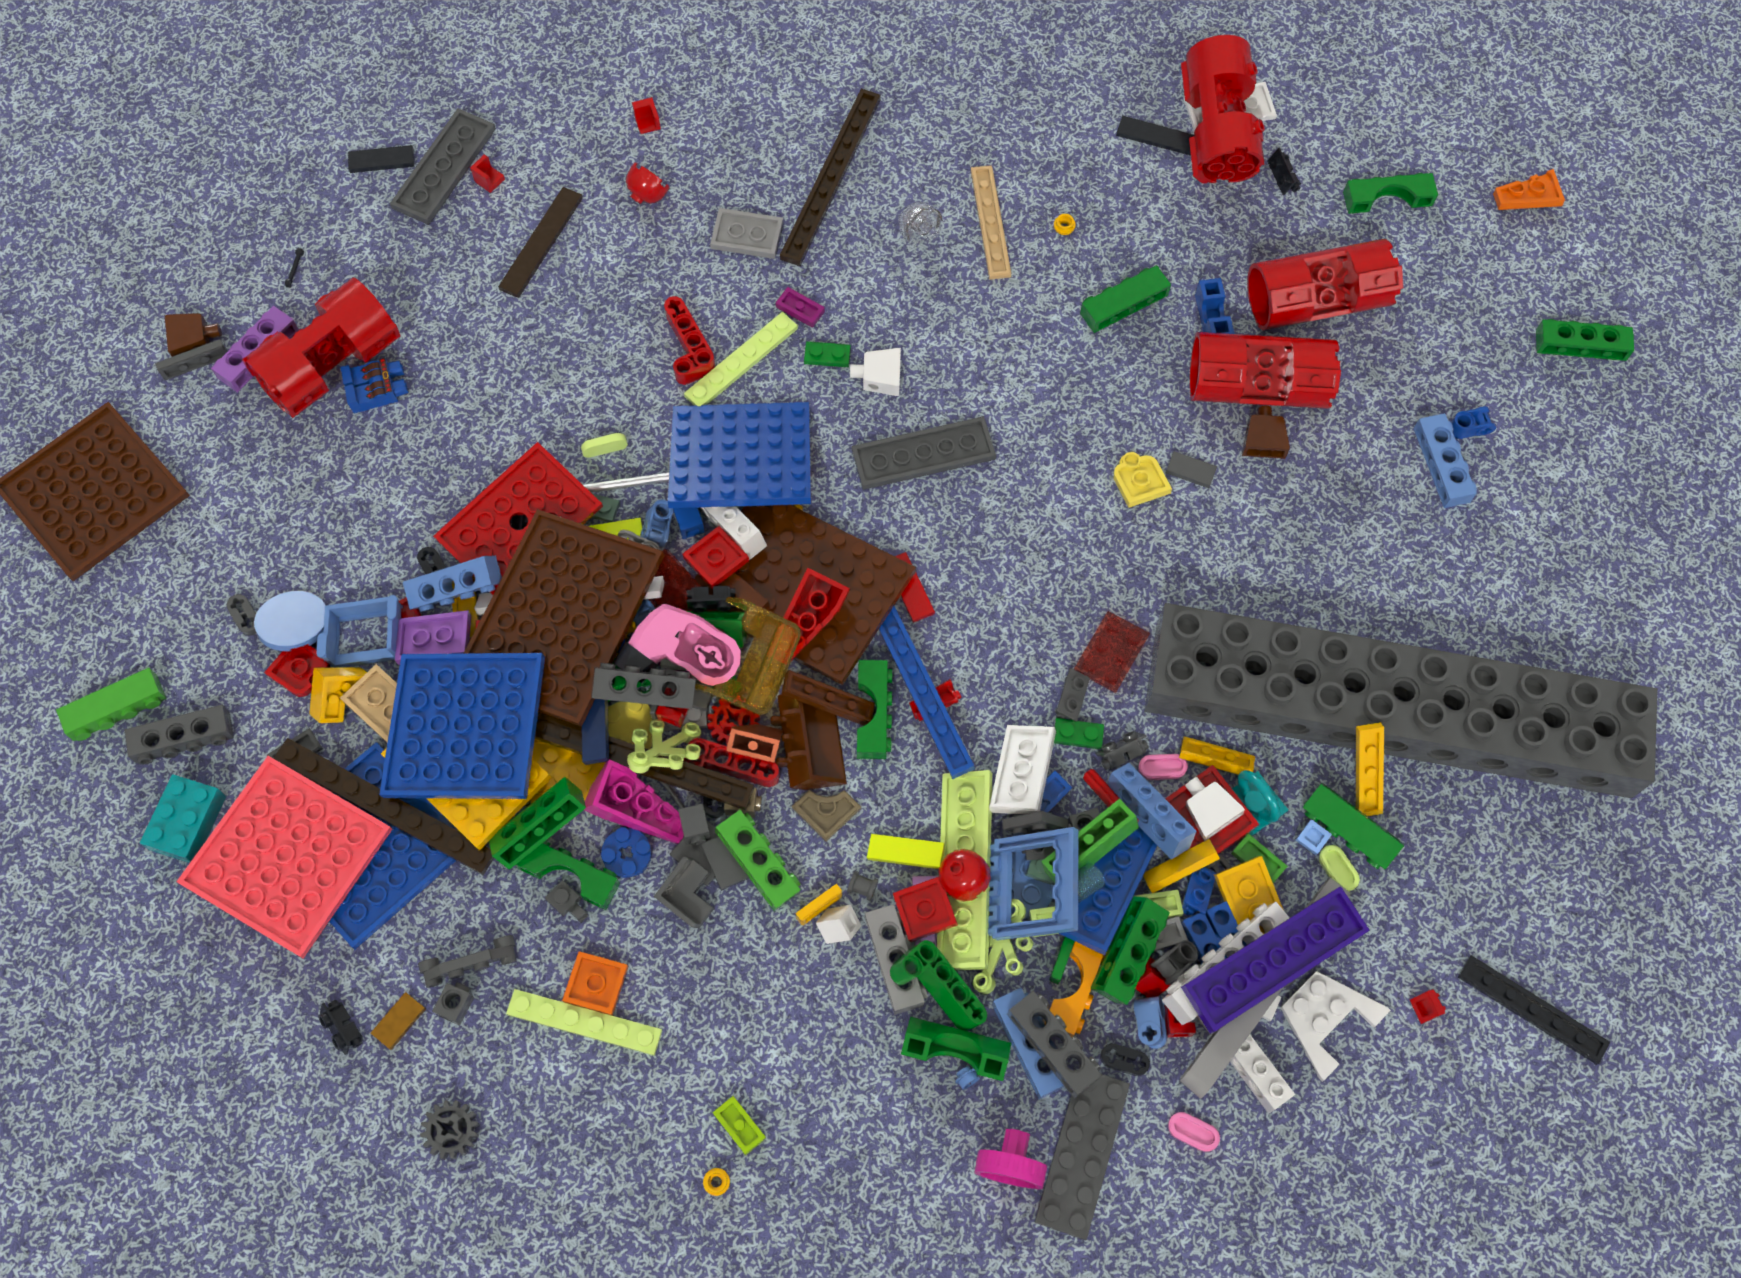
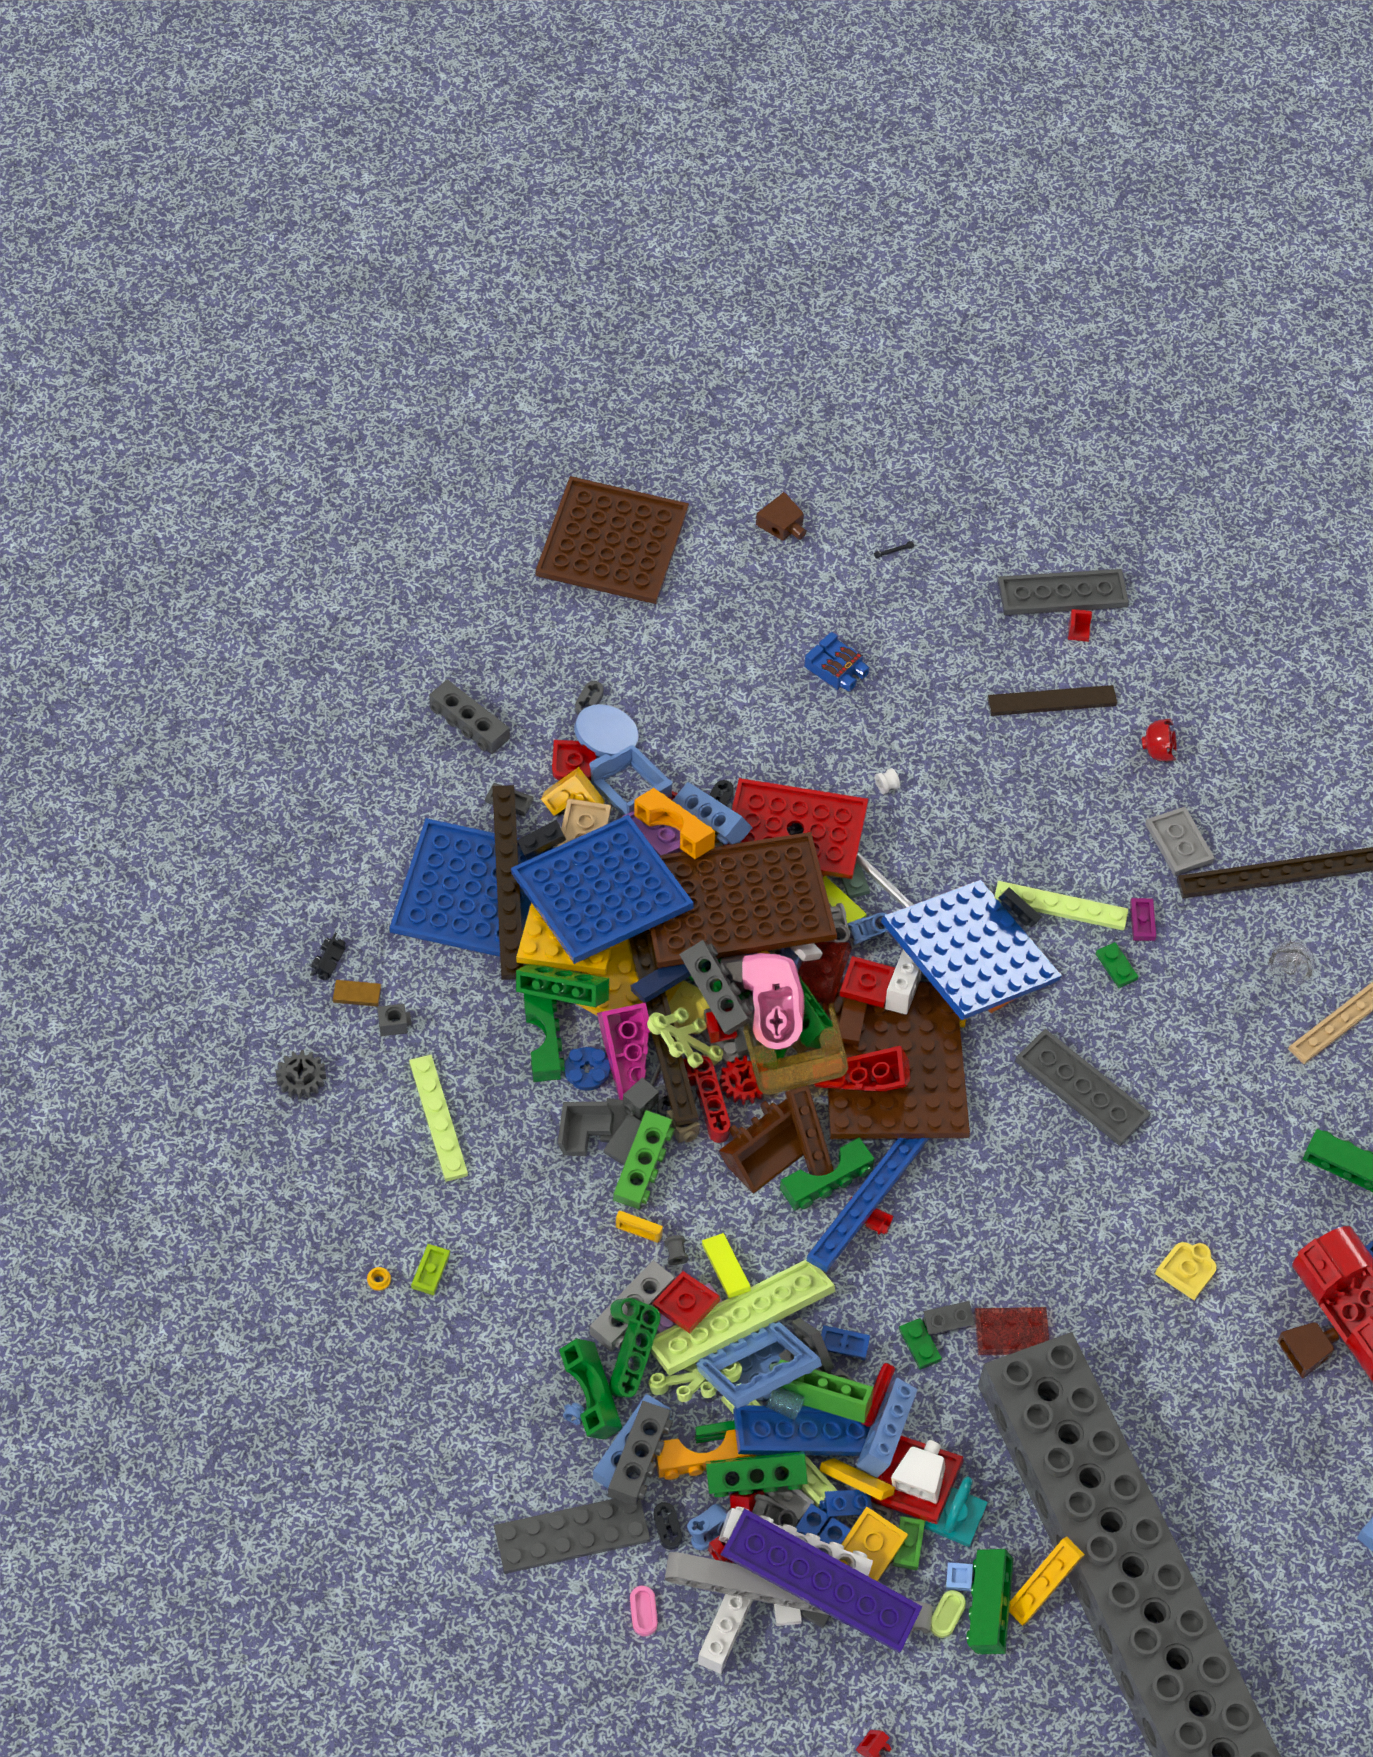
camera: 55 degrees right, 10 degrees down
(111, 705) = (460, 660): bright green brick -> none
(183, 818) = (408, 760): teal brick -> none
(191, 360) = (764, 534): dark grey tile -> none
(238, 375) = (804, 567): medium lavender brick -> none
(285, 856) = (426, 840): coral plate -> none
(347, 325) = (805, 600): red cylinder -> none
(365, 748) = (541, 839): none -> black plate
(381, 159) = (1034, 546): black tile -> none
(414, 625) = (657, 809): none -> light orange arch
(435, 971) = (418, 1002): dark grey plate -> none
(522, 418) = (887, 781): none -> white wheel
(565, 900) = (521, 1049): dark grey plate -> none
(595, 983) = (472, 1106): orange plate -> none
(604, 445) = (908, 851): yellowish green tile -> none
(646, 115) = (1229, 703): red panel -> none
(687, 337) = (1048, 853): red beam -> none
(689, 522) = (887, 950): blue panel -> none
(700, 600) = (823, 992): black hinge -> none
(725, 391) = (1024, 911): none -> black plate
(755, 741) = (736, 1101): copper slope -> none
(825, 813) = (718, 1192): dark tan tile -> none
(838, 924) = (633, 1250): white panel -> none
(879, 371) = (1131, 1012): white torso -> none
(915, 597) = (952, 1149): red tile -> none
(964, 874) = (732, 1312): red cylinder -> none
(1011, 1164) = (525, 1475): dark pink piece -> none
(1022, 769) = (854, 1312): white tile -> none
(1131, 745) = (938, 1388): dark grey hinge -> none
(1162, 767) = (938, 1425): bright pink tile -> none
(1191, 469) = (1230, 1305): dark grey tile -> none
(1220, 757) = (976, 1462): yellow tile -> none
(1318, 1009) = (811, 1658): white wing -> none

